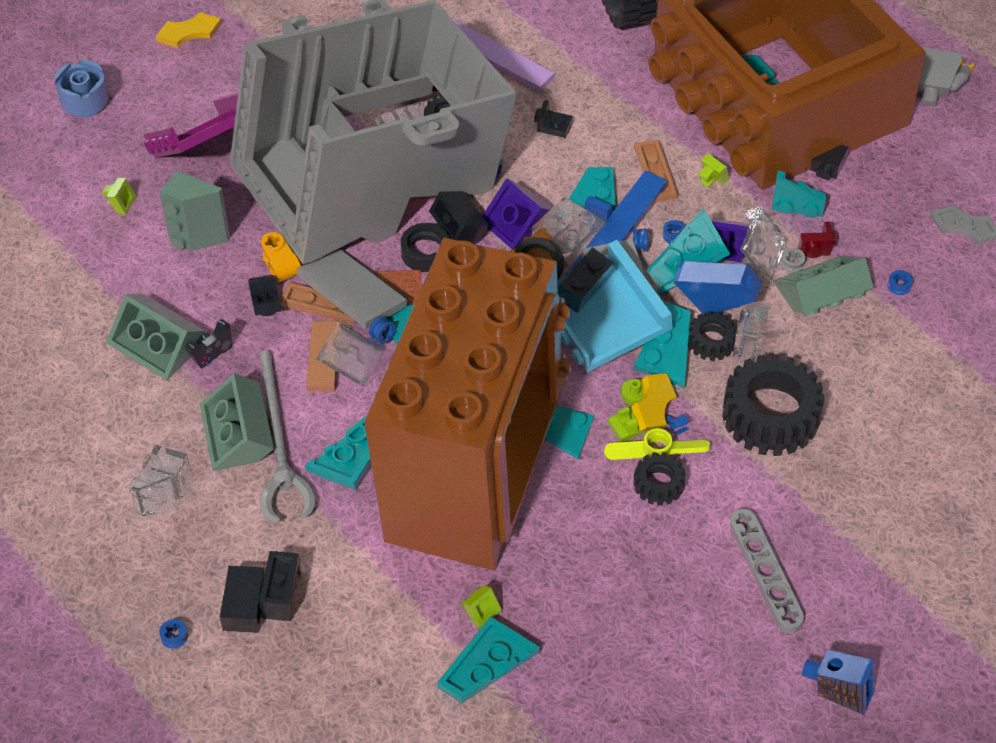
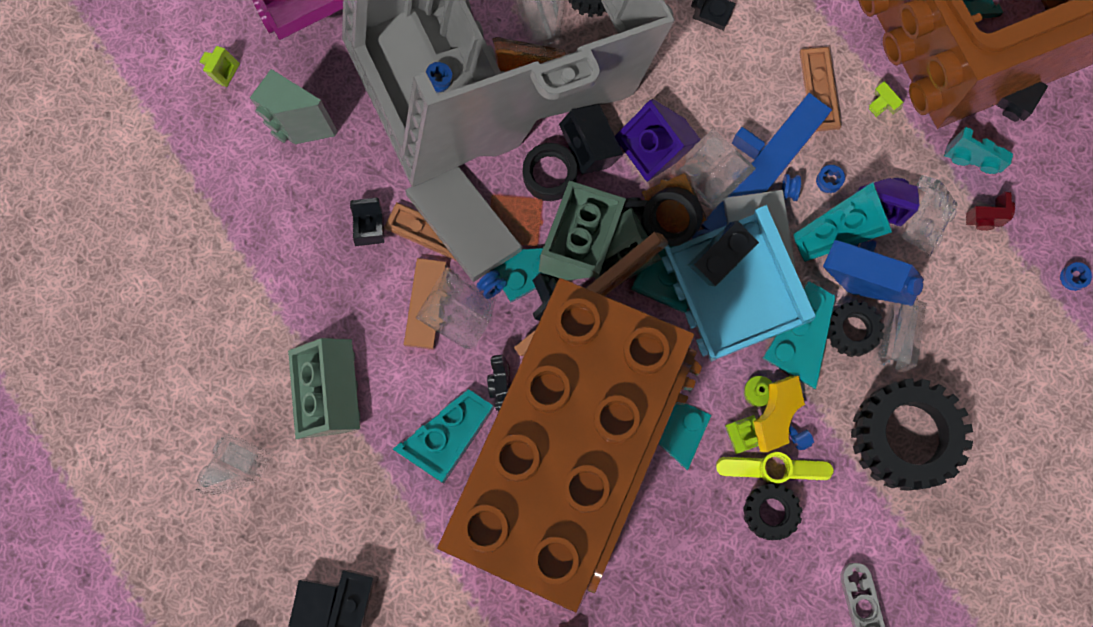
camera: 10 degrees right, 25 degrees up
(152, 334) = (244, 259): sand green slope -> none
(211, 345) = (302, 282): black piece -> none
(279, 257) = (388, 173): light orange piece -> none
(283, 475) = (369, 458): light grey piece -> none
(596, 183) = (748, 109): teal wing -> none
(796, 254) = (963, 223): light grey bush -> none
(825, 284) = (991, 270): sand green slope -> none

